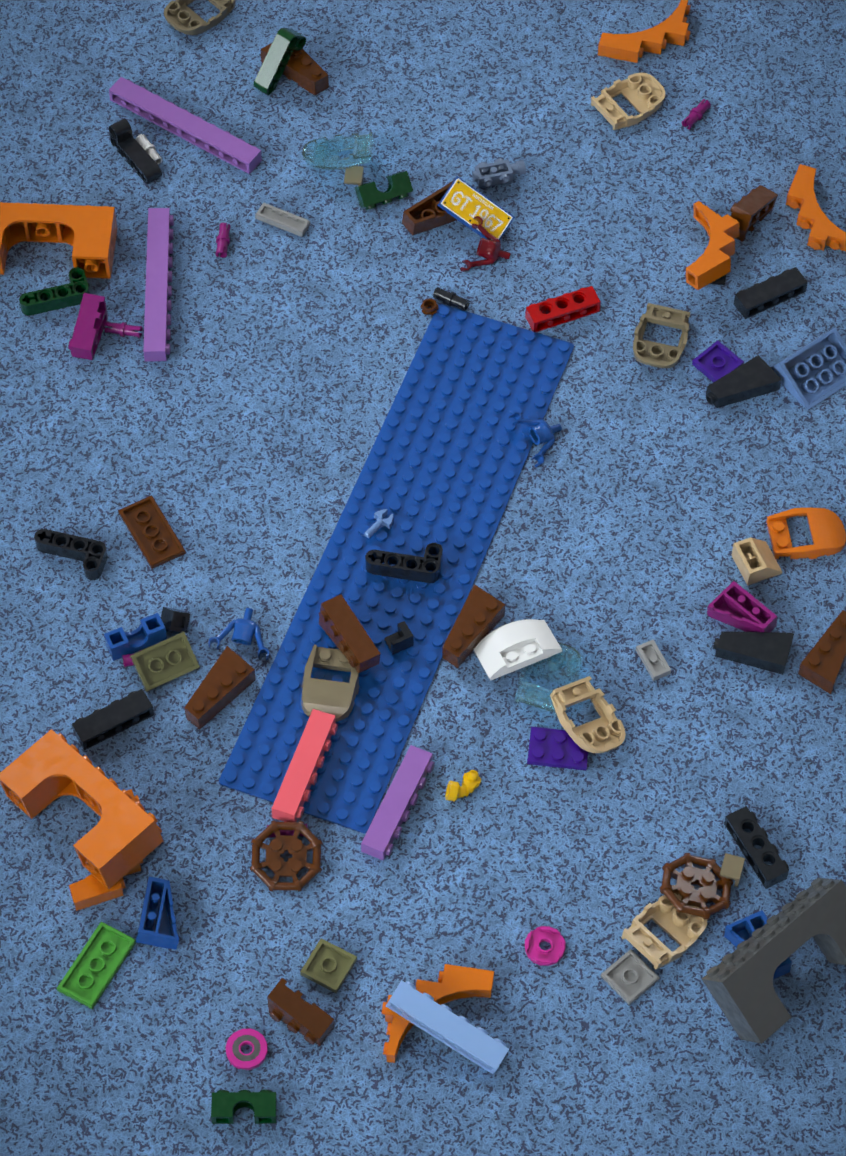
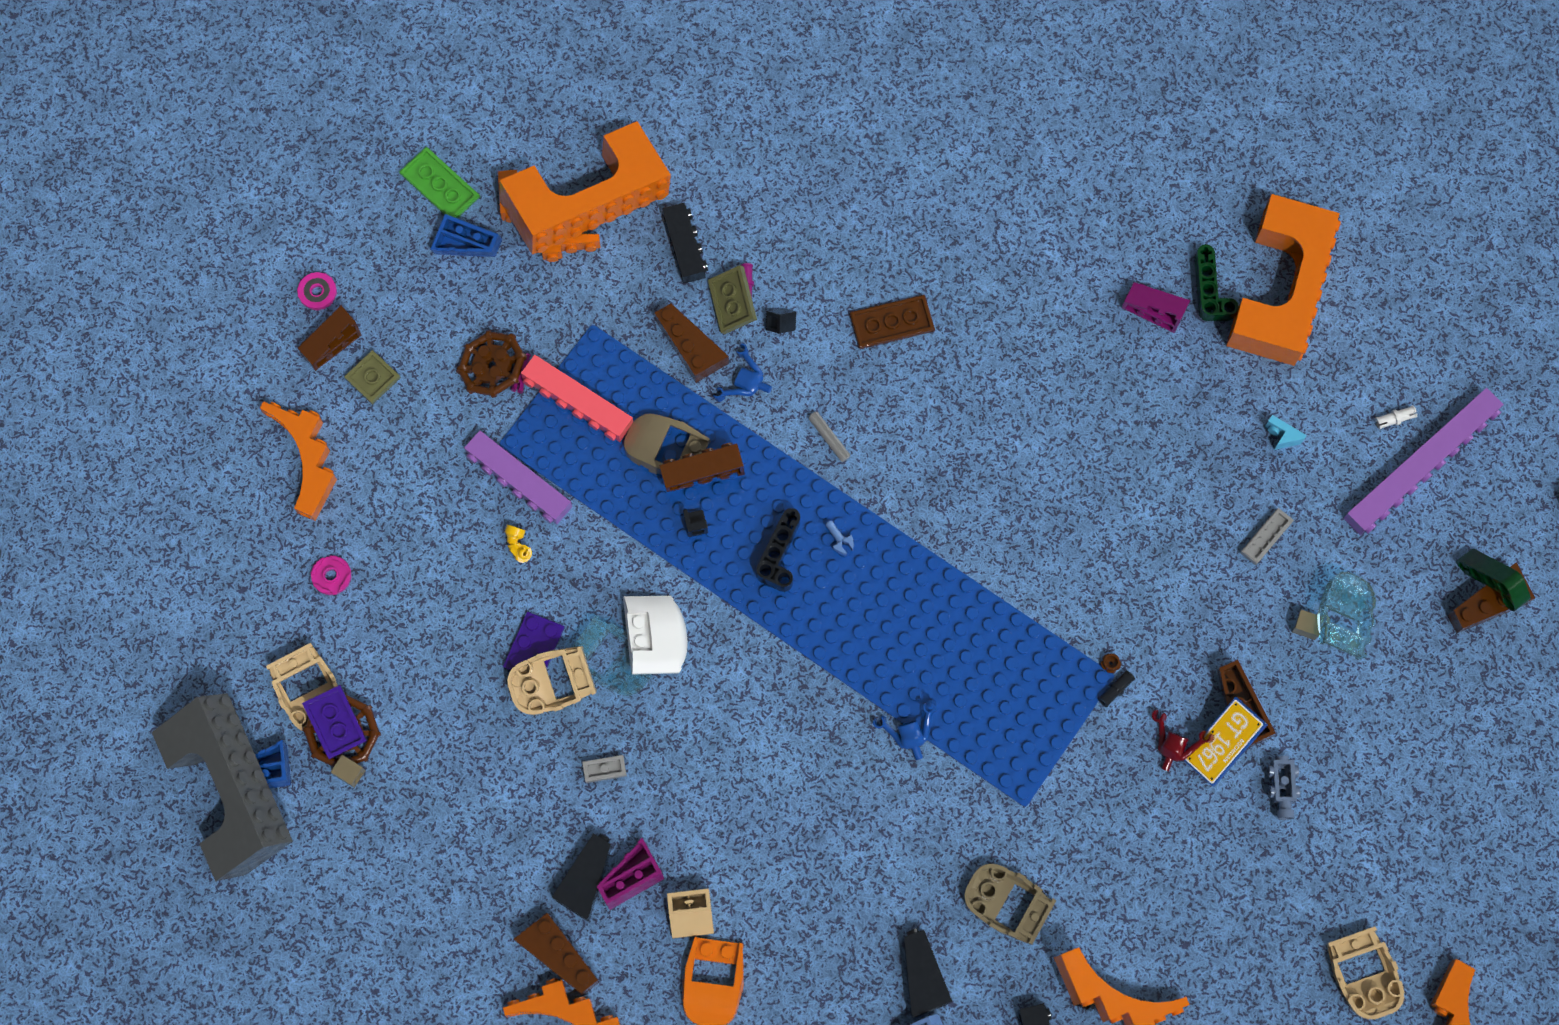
camera: 105 degrees right, 15 degrees up
(50, 541) = (886, 241): black beam -> none
(123, 329) = (1151, 343): magenta pin -> none
(136, 156) = (1414, 389): black beam -> none
(147, 634) = (766, 278): blue arch -> none
(157, 284) = (1204, 387): medium lavender brick -> none
(186, 219) = (1289, 434): none -> medium azure slope
(223, 240) = (1251, 467): magenta pin -> none
(226, 1103) = (258, 290): dark green arch -> none
(280, 556) = (829, 436): none -> light grey axle
(398, 185) = (1277, 637): dark green arch -> none
(447, 1027) = (269, 458): light blue brick -> none
(473, 623) = (694, 599): reddish brown wedge -> none
(562, 309) = (1072, 837): red brick -> none
(630, 977) = (273, 642): light grey tile -> none
(693, 884) = (334, 722): none -> dark purple plate
(716, 361) = (960, 957): dark purple plate -> none
(768, 874) = (332, 805): black brick -> none

